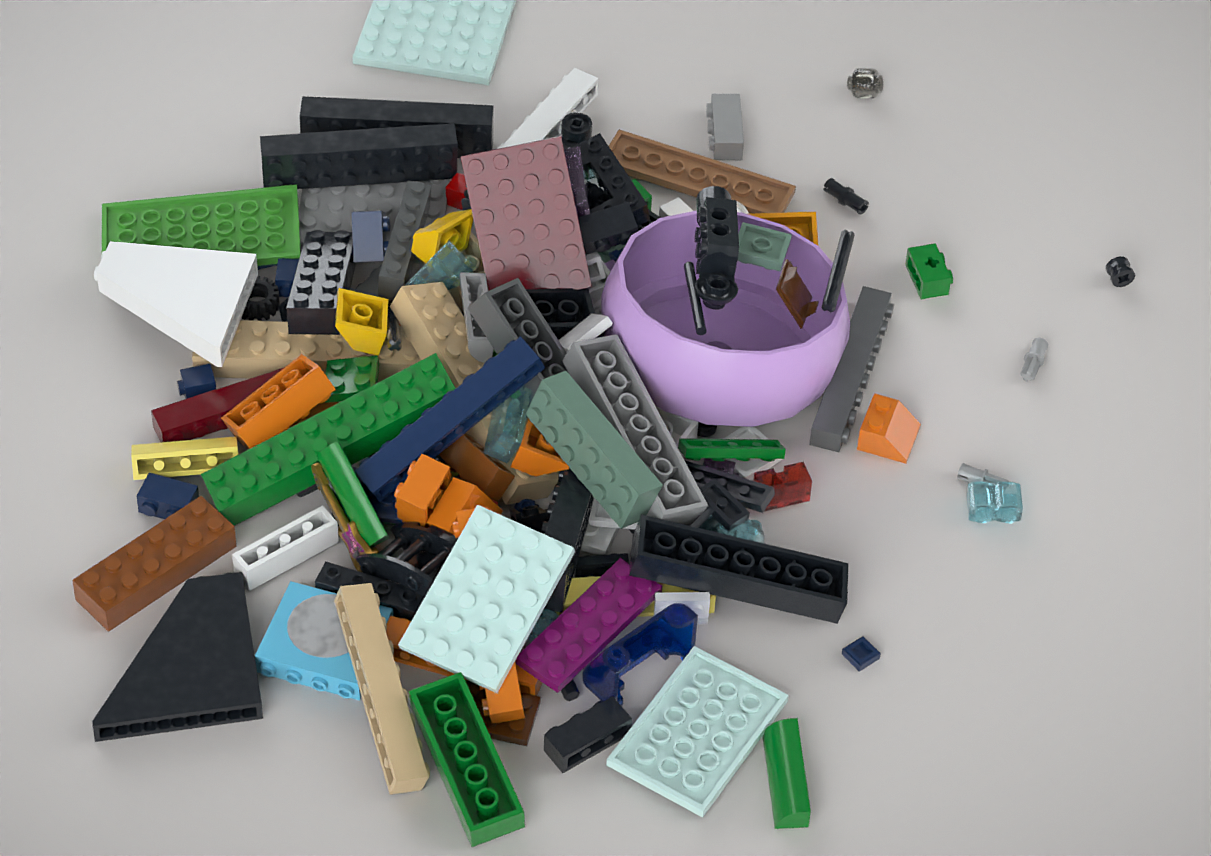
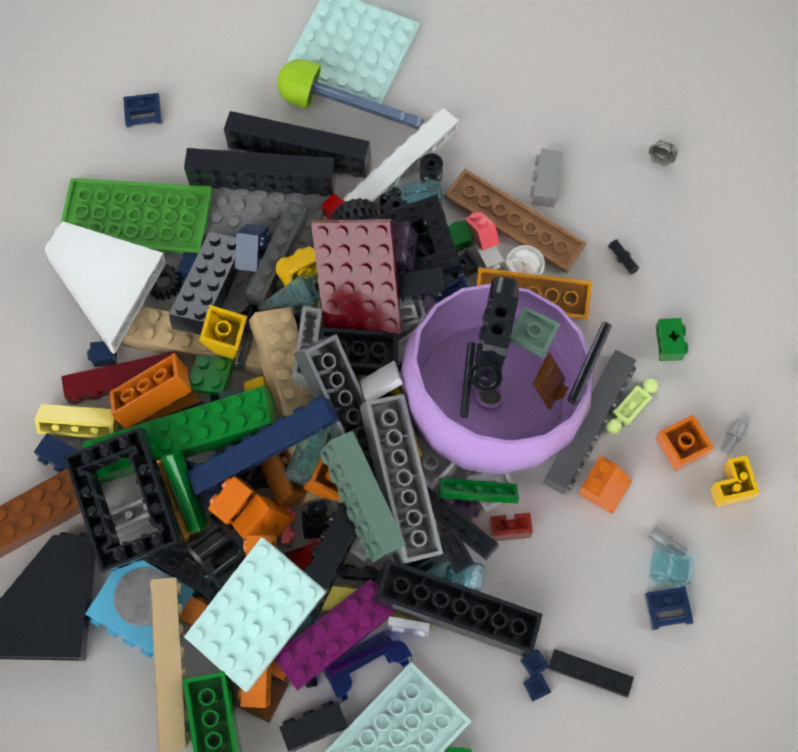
camera: 15 degrees right, 20 degrees up
(177, 116) = (140, 105): none -> dark blue plate
(255, 455) = (95, 510): none -> black brick
(381, 61) = (299, 82): none -> piece
(663, 184) = (482, 230): none -> coral brick
(850, 628) = (534, 663): none -> dark blue tile
(899, 346) = (632, 405): none -> yellowish green plate
(924, 628) = (591, 673): none -> black plate
(975, 370) = (684, 443): none -> orange brick
(999, 538) = (666, 601): none -> dark blue plate
(1050, 403) = (739, 484): none -> yellow brick

